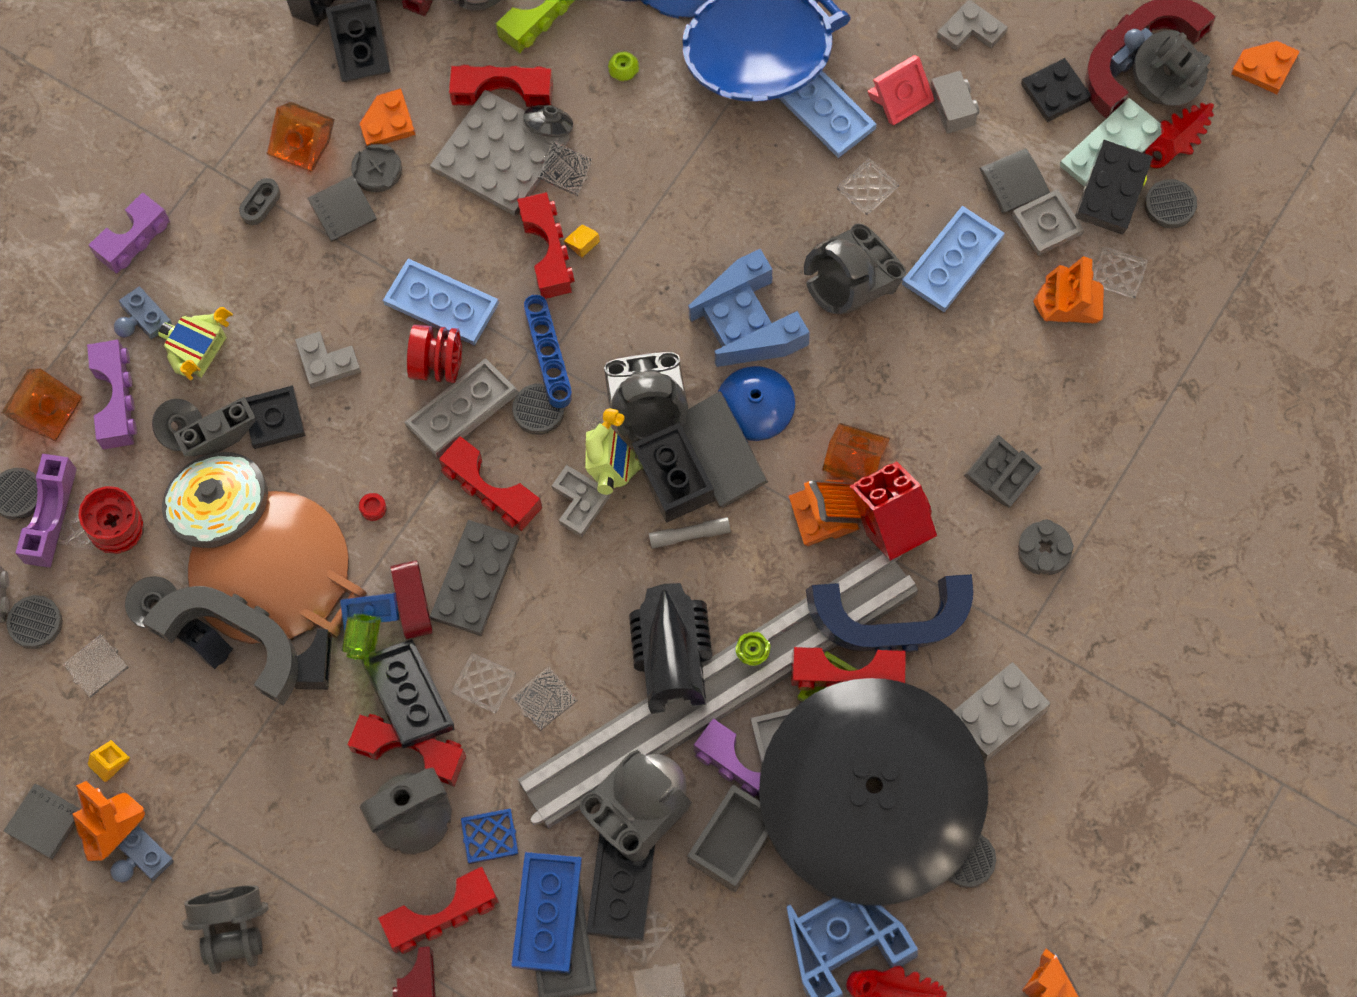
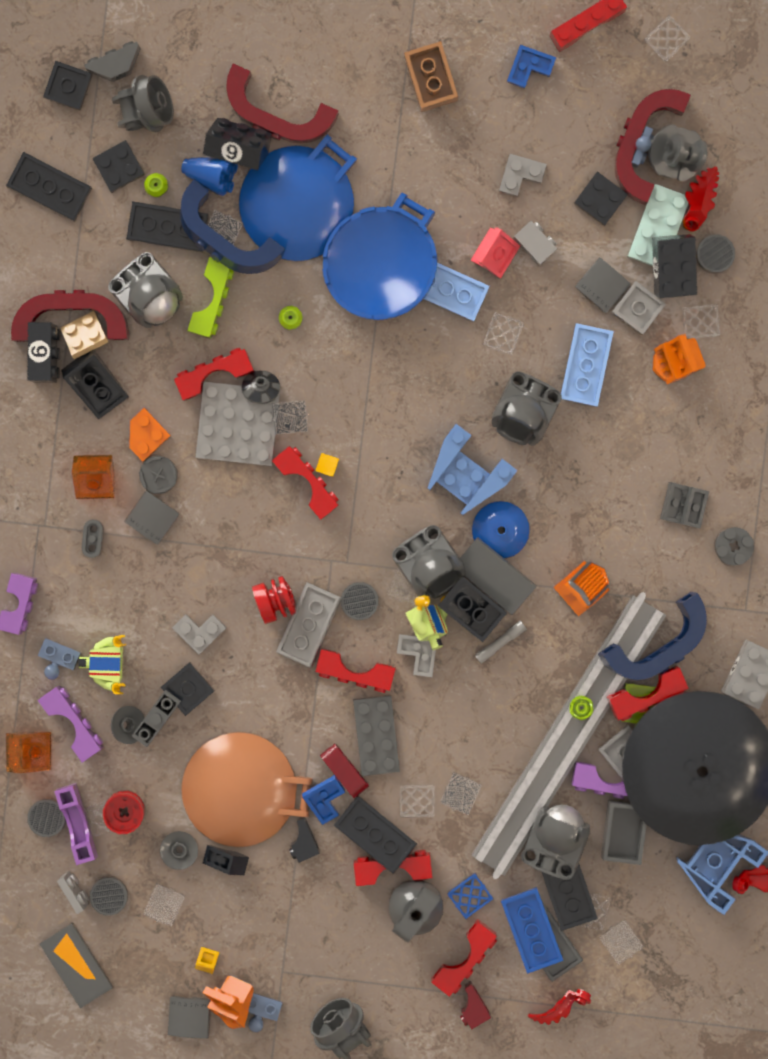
camera: 25 degrees left, 20 degrees up
(189, 603) = (253, 839): dark grey arch -> none
(215, 500) = (182, 765): dish -> none
(361, 635) = (330, 817): clear neon green brick -> none
(372, 506) = (285, 718): red tile -> none
(440, 301) = (256, 555): light blue plate -> none
(550, 361) = (343, 549): blue beam -> none
(670, 644) = (528, 729): black connector -> none
(854, 453) = (584, 538): clear orange slope -> none
(893, 510) = (631, 574): red brick -> none
(1266, 65) = (739, 112): orange plate -> none

